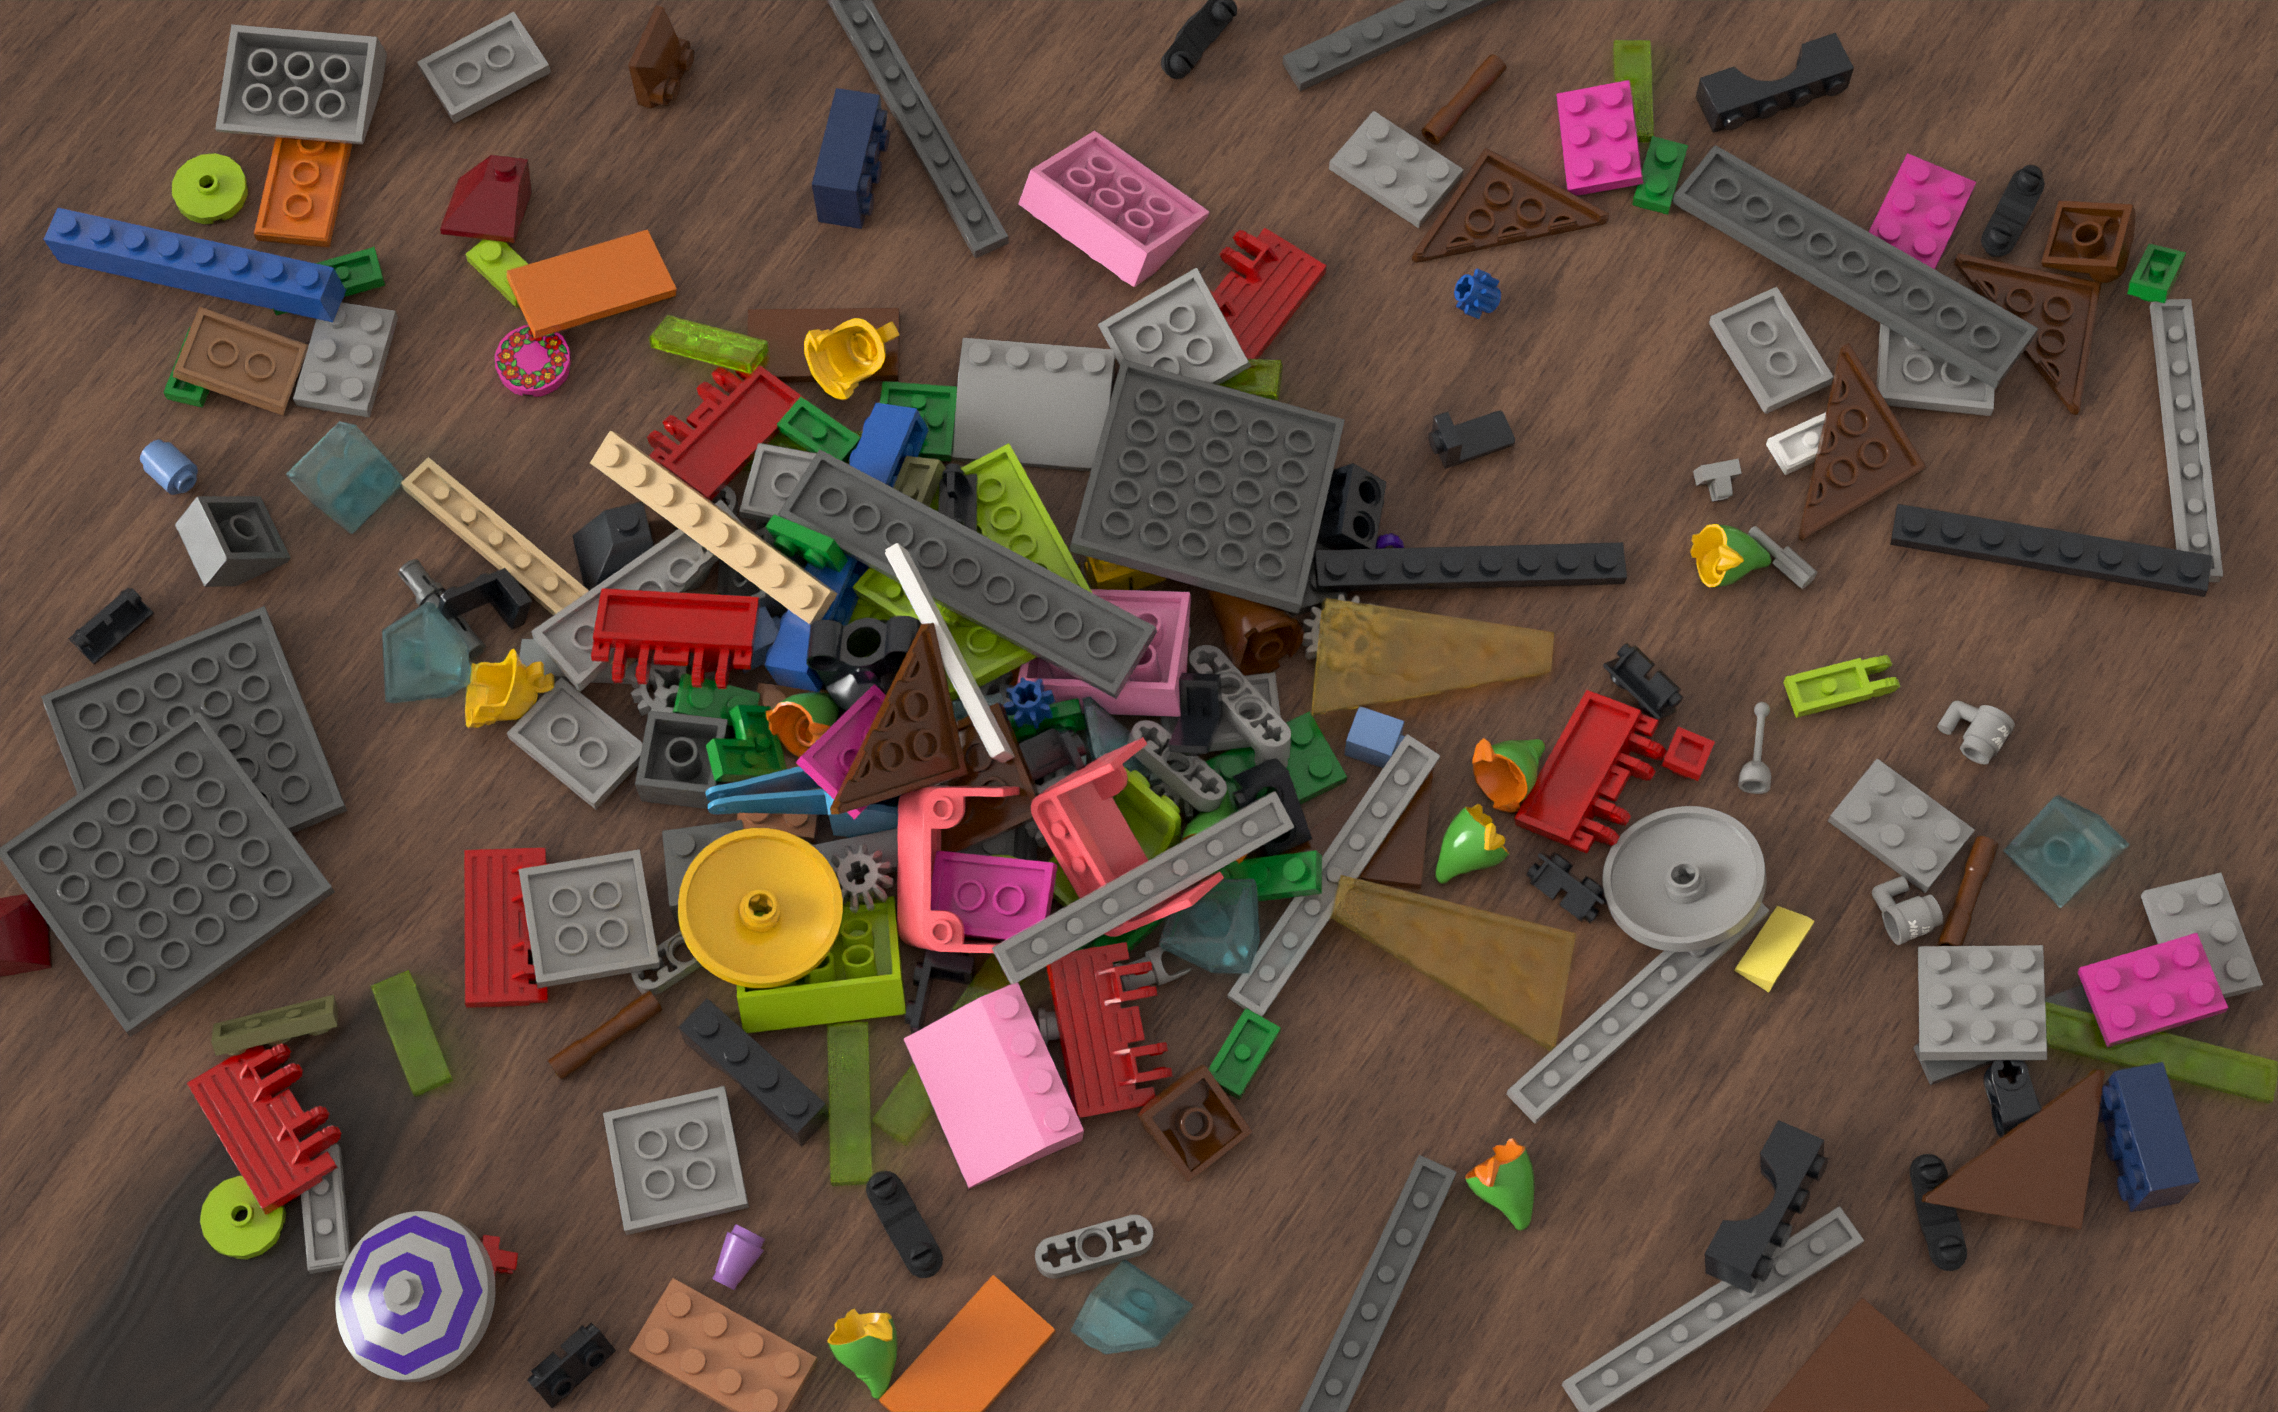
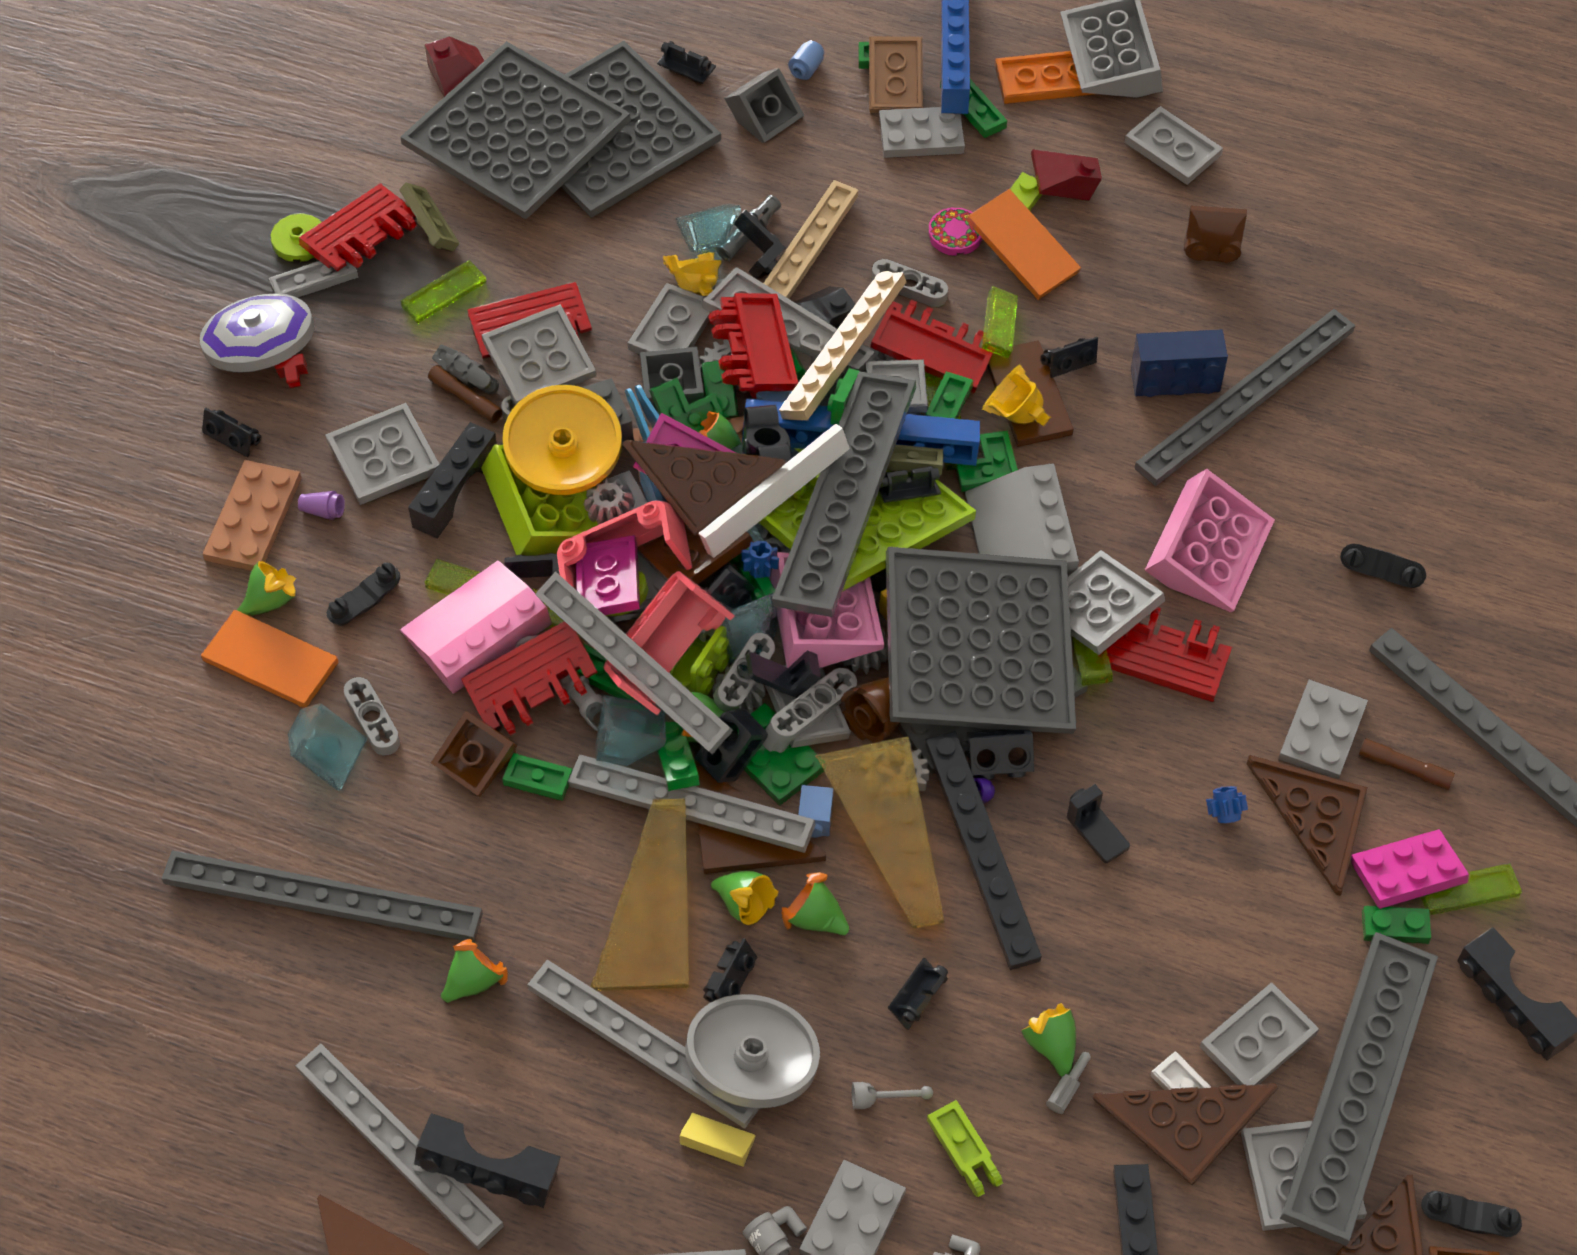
camera: 75 degrees right, 10 degrees down
(211, 203) = (1022, 28): lime plate -> none
(346, 476) = (829, 150): clear light blue slope -> none
(565, 1026) = (465, 369): none -> dark grey hinge
(573, 448) = (916, 293): none -> light grey beam
(786, 266) = (1071, 357): none -> black hinge
(849, 1103) = (448, 545): clear neon green tile -> none
(1587, 764) = (830, 966): red hinge -> none
(1687, 754) = (864, 1035): red tile -> none
(1718, 478) = (1122, 1017): light grey tile -> none
(1922, 209) = (1440, 1138): dark pink plate -> none

